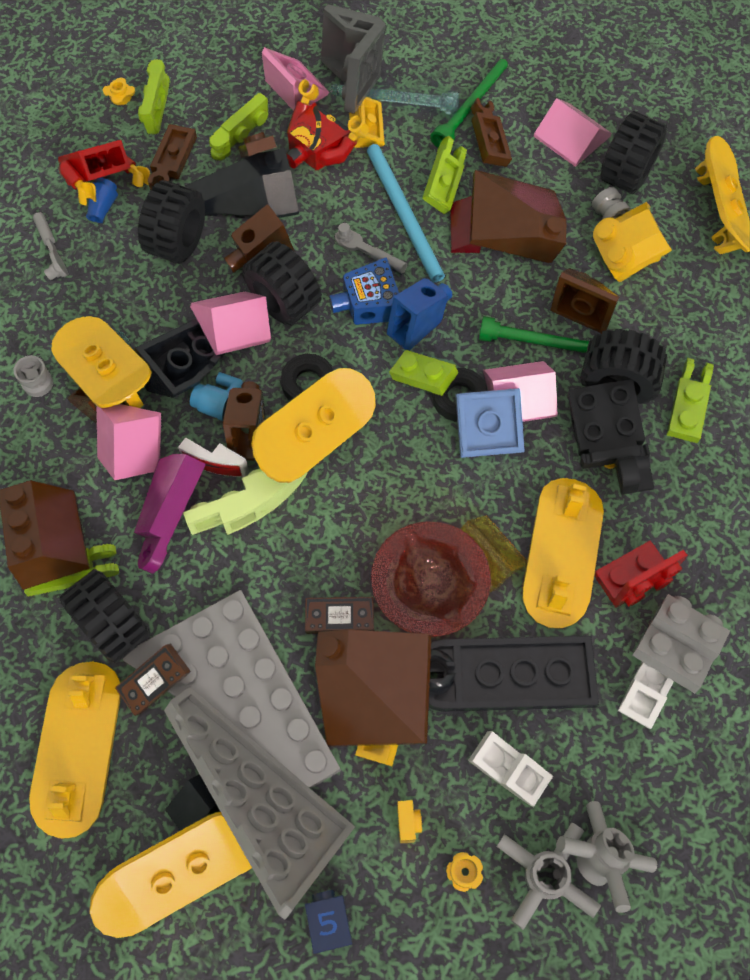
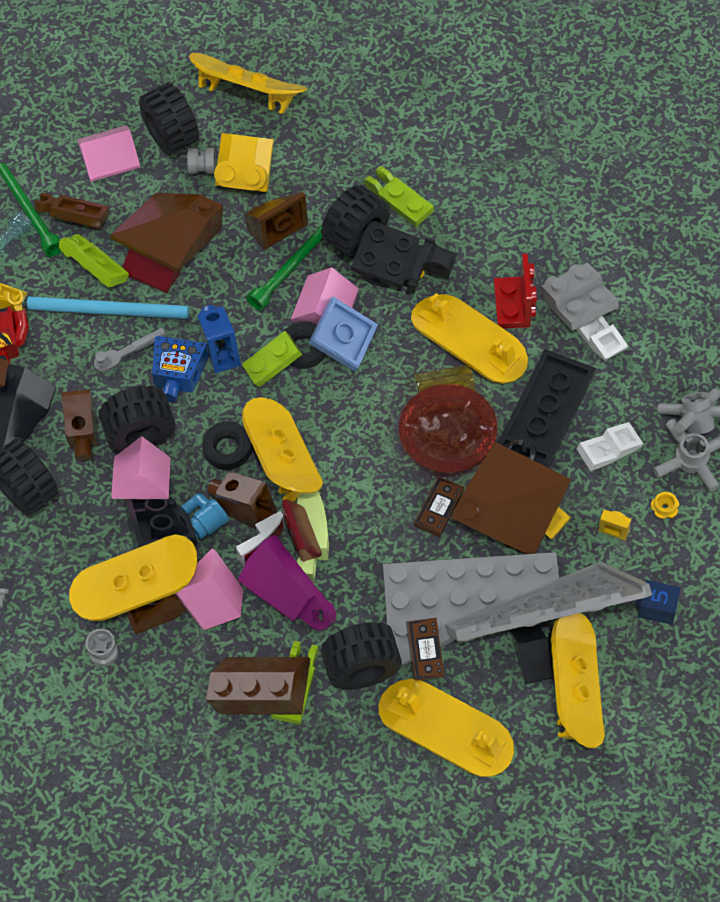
camera: 60 degrees left, 5 degrees down
(225, 486) = (301, 530): none -> dark red slope

